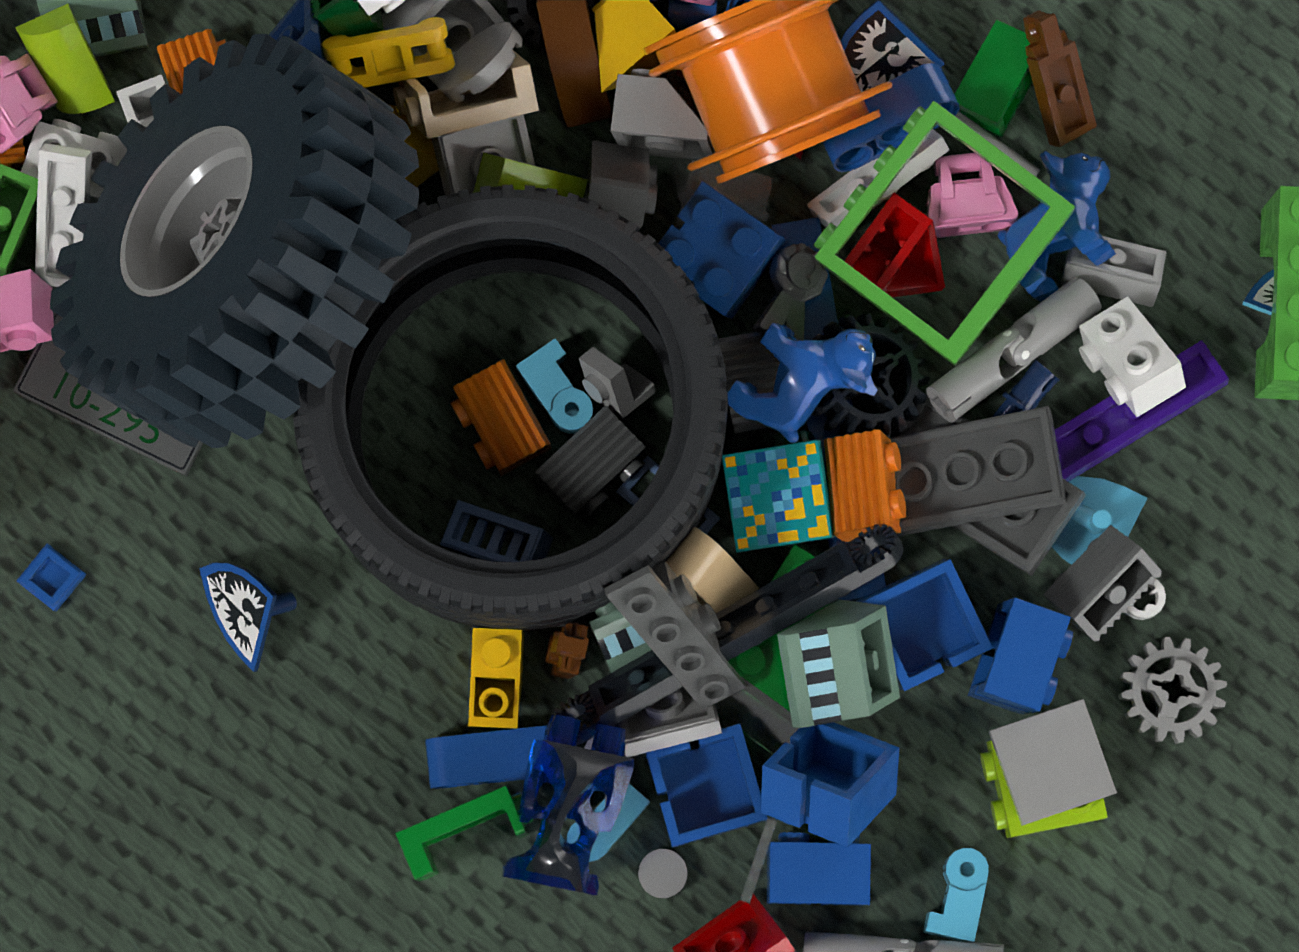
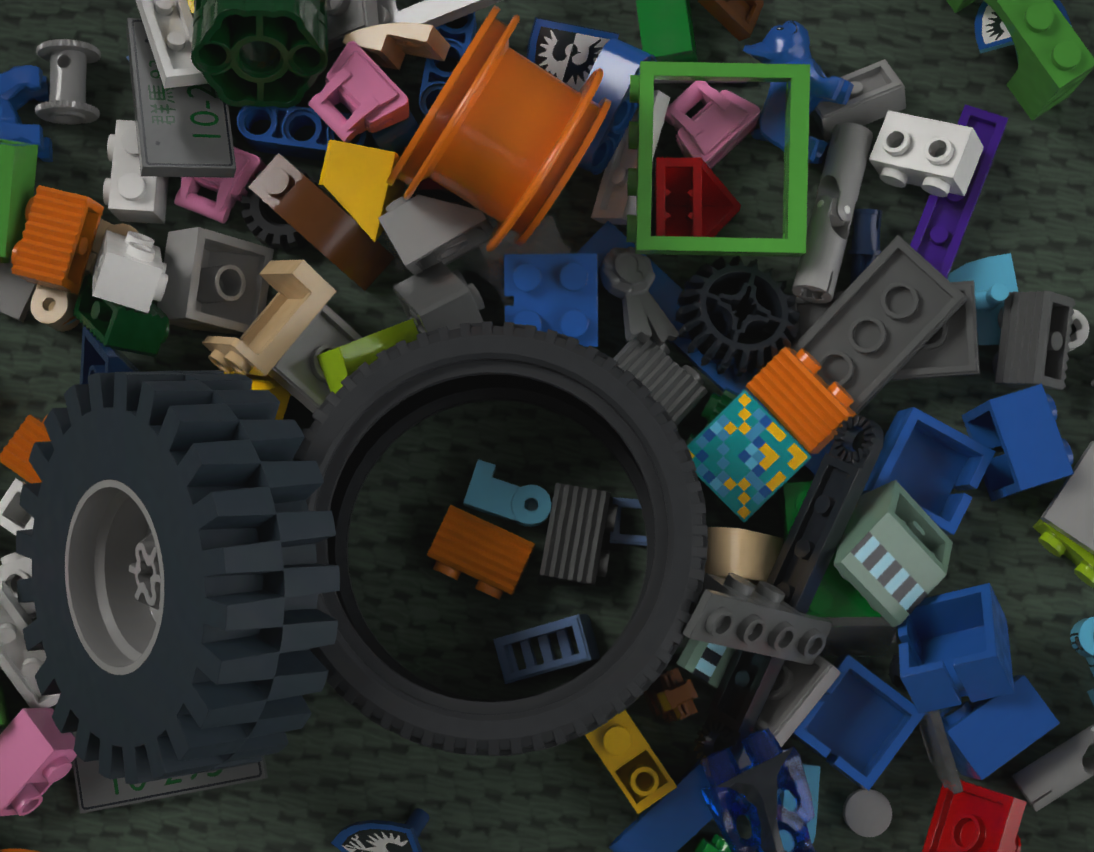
camera: 35 degrees left, 0 degrees up
(390, 54) = (186, 331): yellow plate -> none
(481, 61) = (261, 287): light grey tile -> none
(614, 385) = (550, 461): light grey bracket -> none
(804, 376) = (700, 344): blue animal -> none

